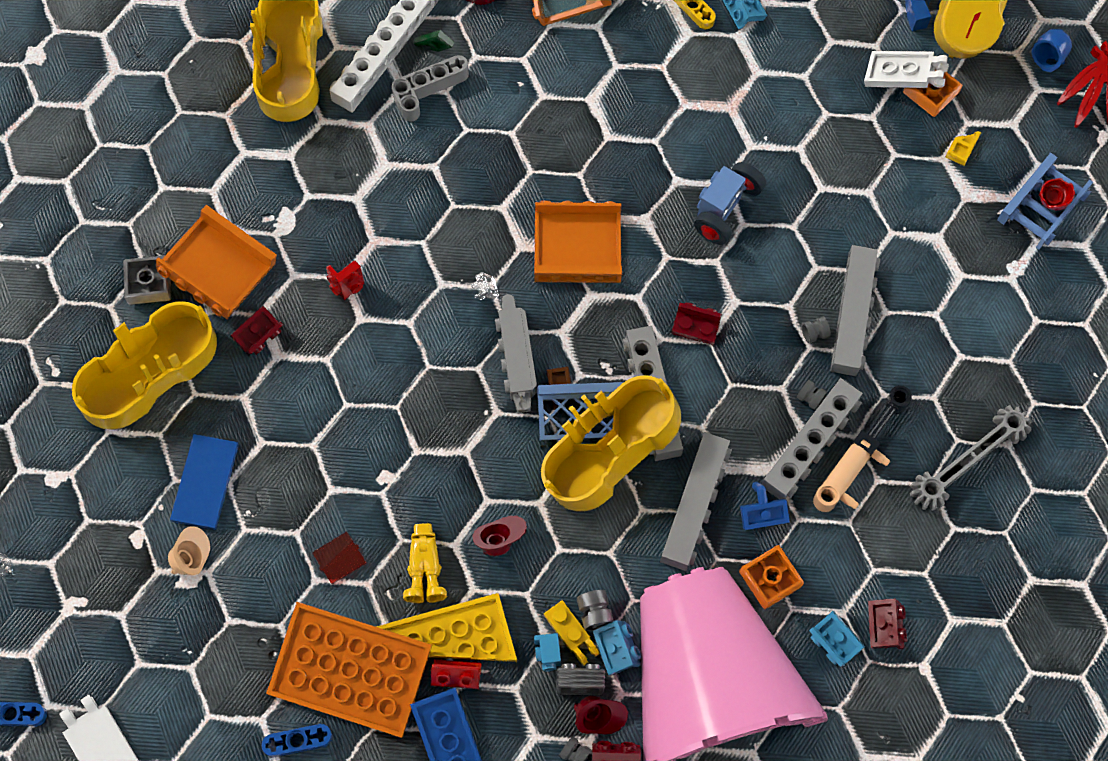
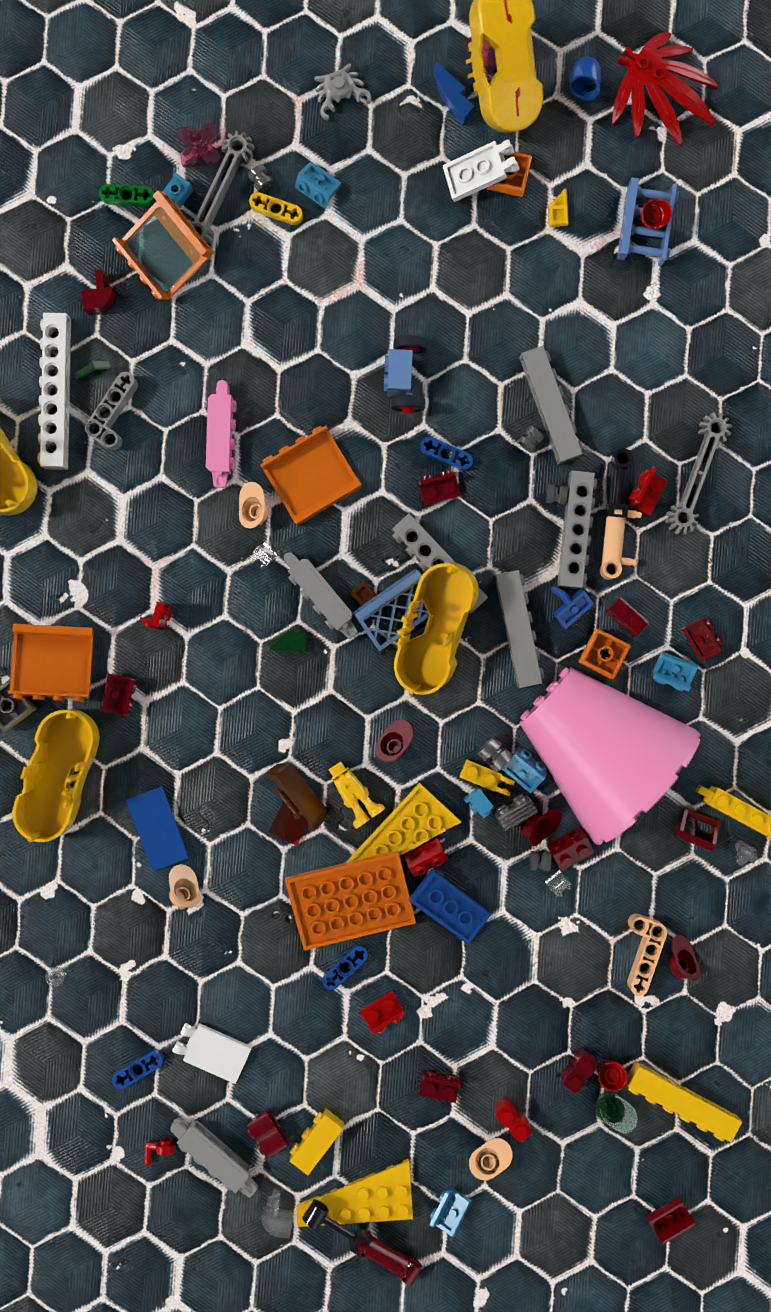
camera: 25 degrees left, 20 degrees up
(366, 532) = (297, 795): none -> reddish brown piece
(457, 382) = (291, 642): none -> dark green tile
(503, 236) = (252, 505): none -> light nougat piece
(514, 158) = (219, 434): none -> bright pink hinge
(722, 287) = (431, 453): none -> blue beam
(816, 553) = (626, 617): none -> dark red brick
(907, 444) = (648, 492): none -> red bracket

